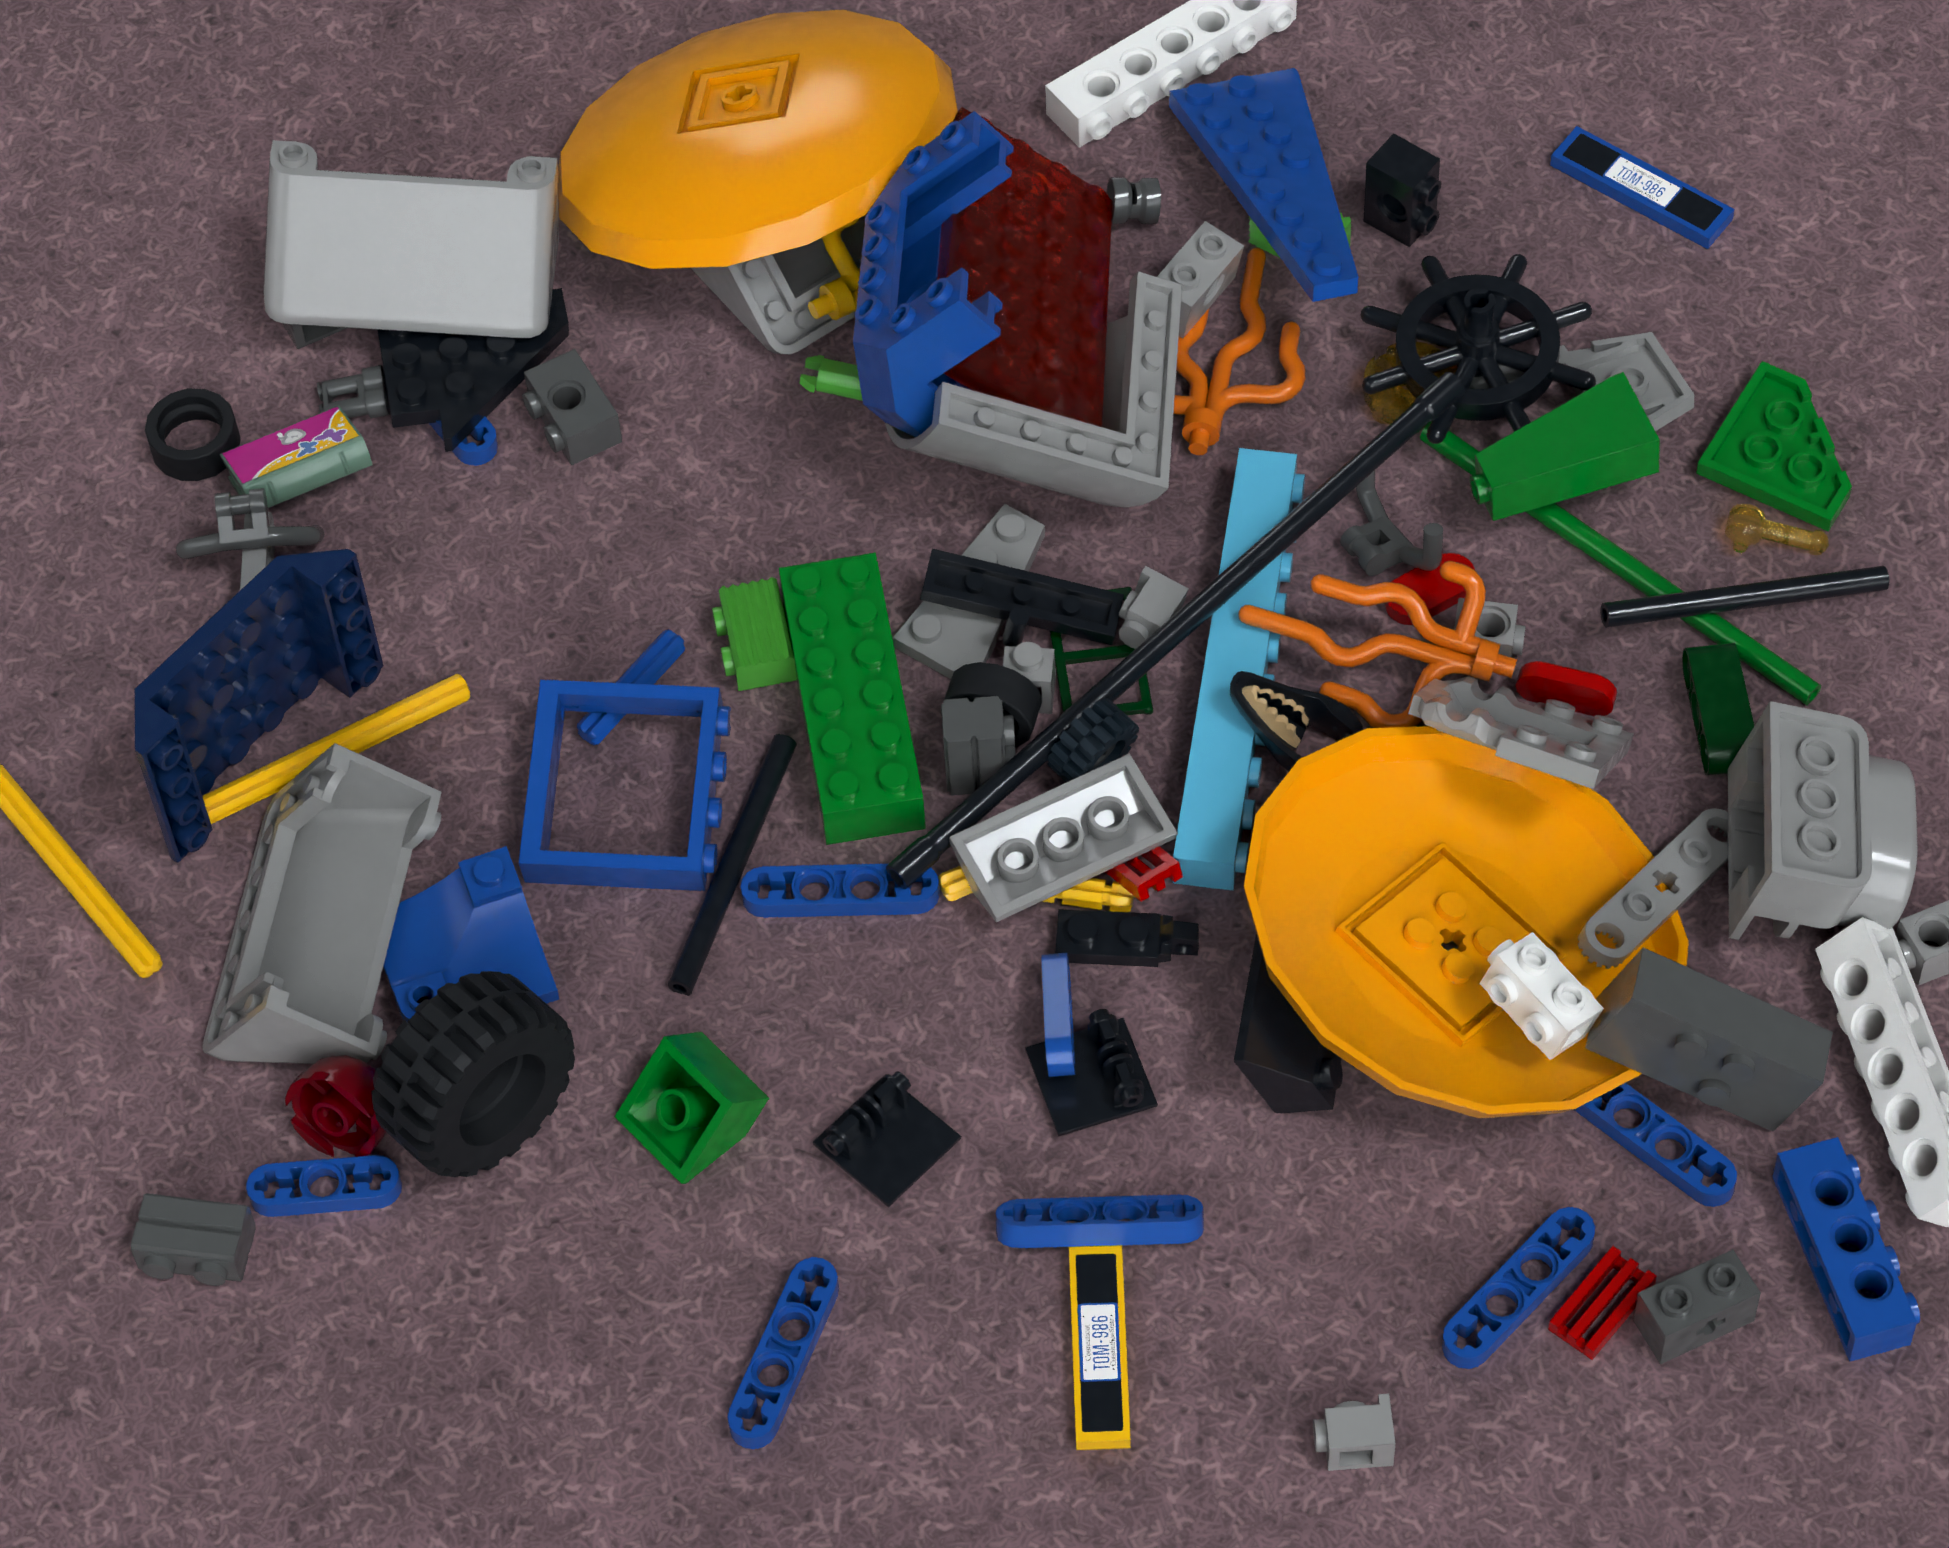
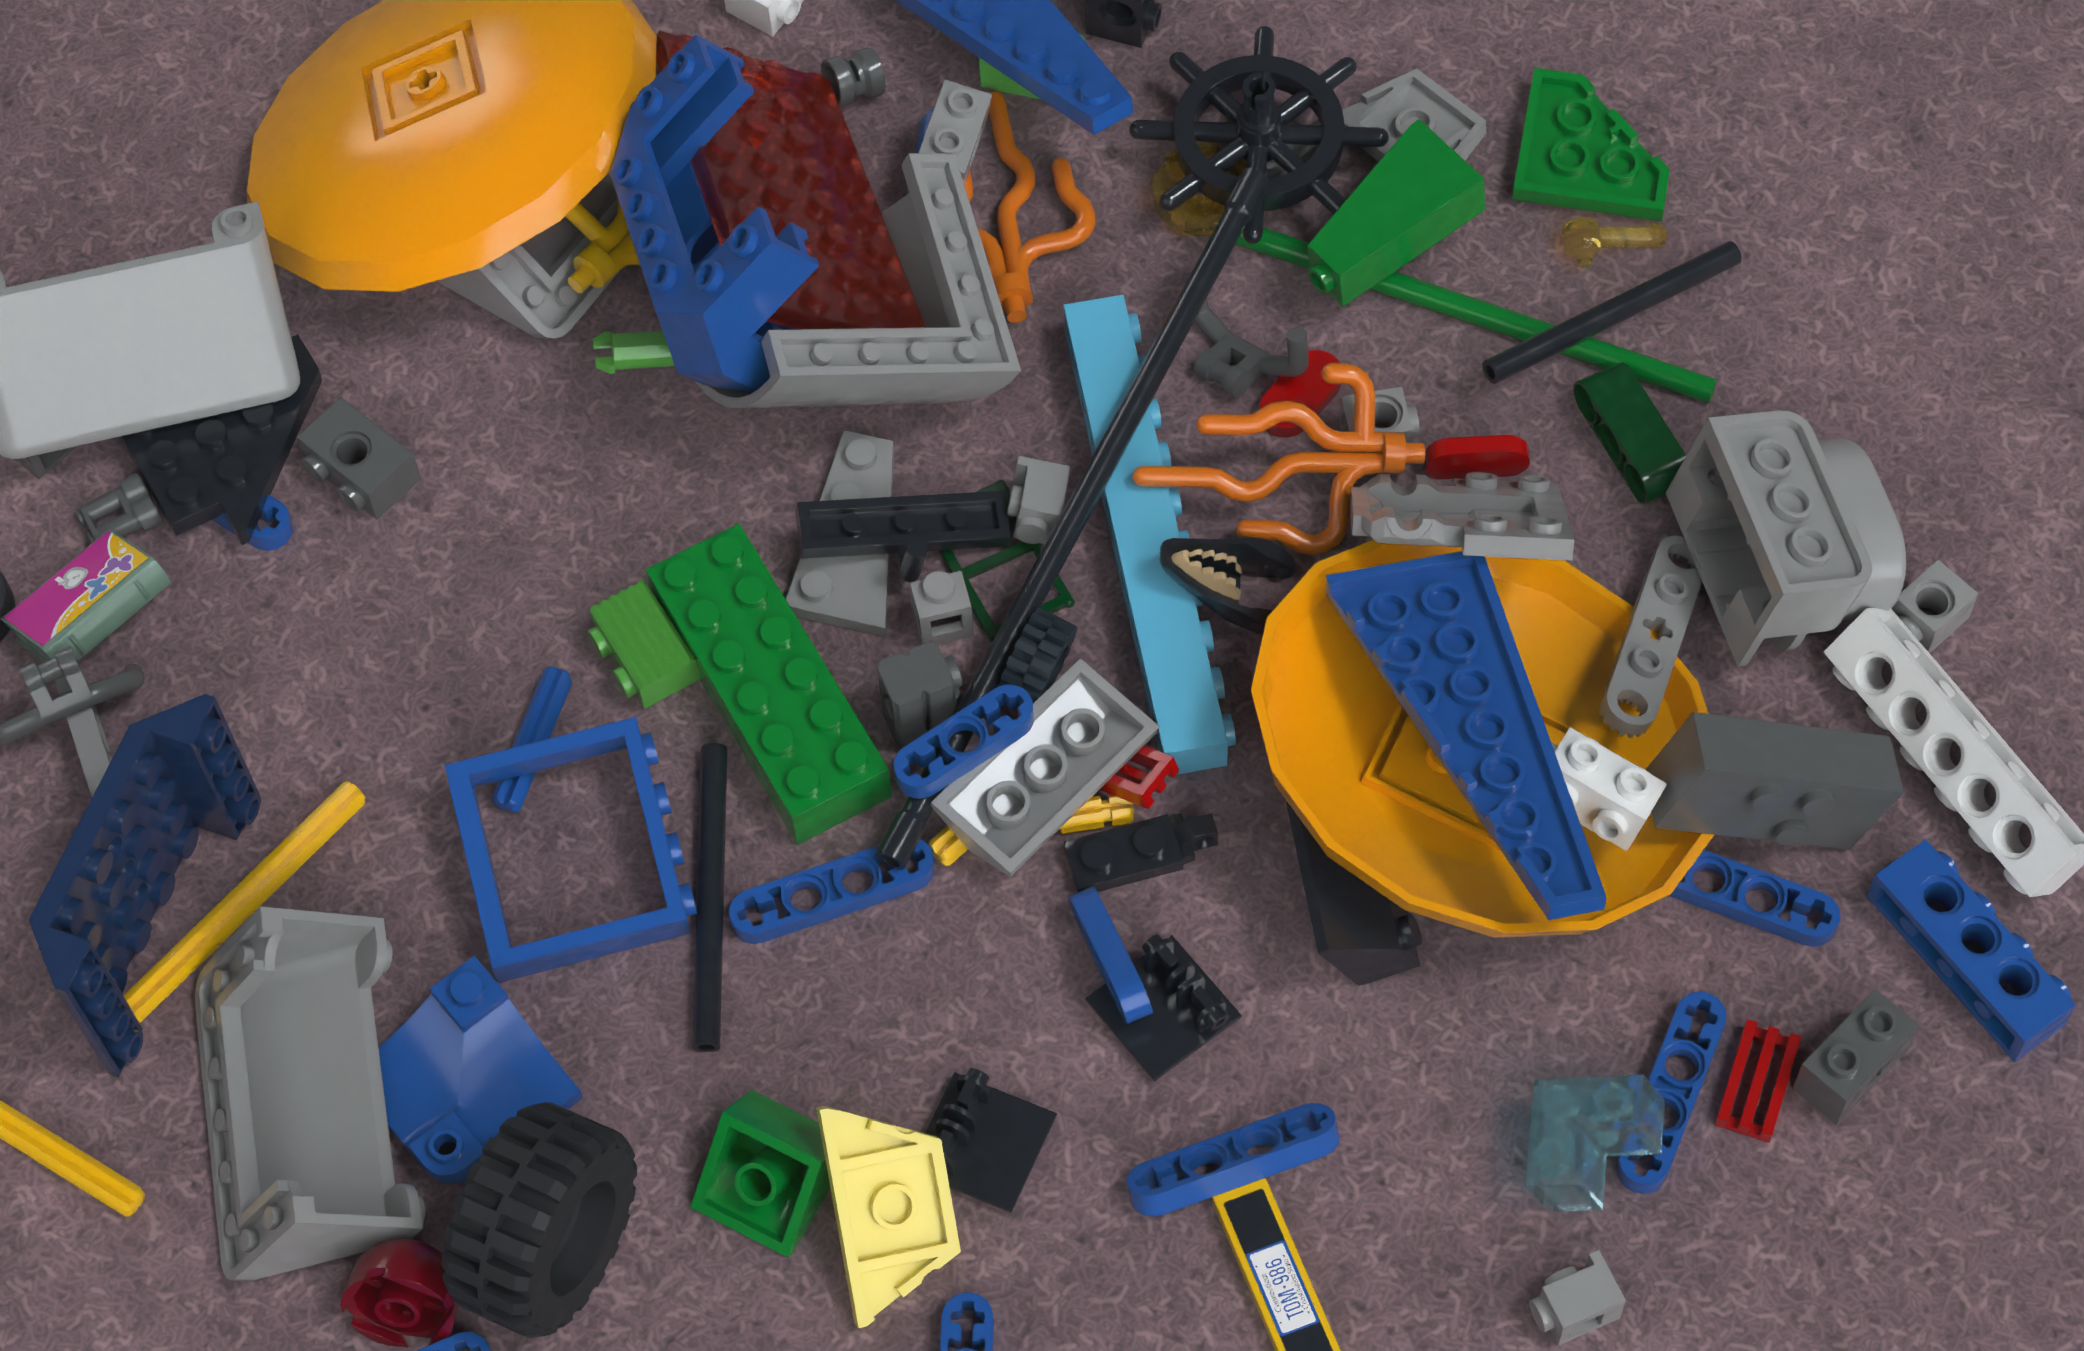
camera: 20 degrees left, 5 degrees up
(778, 1162) = (887, 1206): none -> light yellow wing
(985, 810) = (923, 748): none -> blue beam
(1016, 691) = (915, 626): black tyre -> none
(1413, 1288) = (1582, 1124): none -> clear light blue brick
(1448, 860) = (1460, 678): none -> blue wing

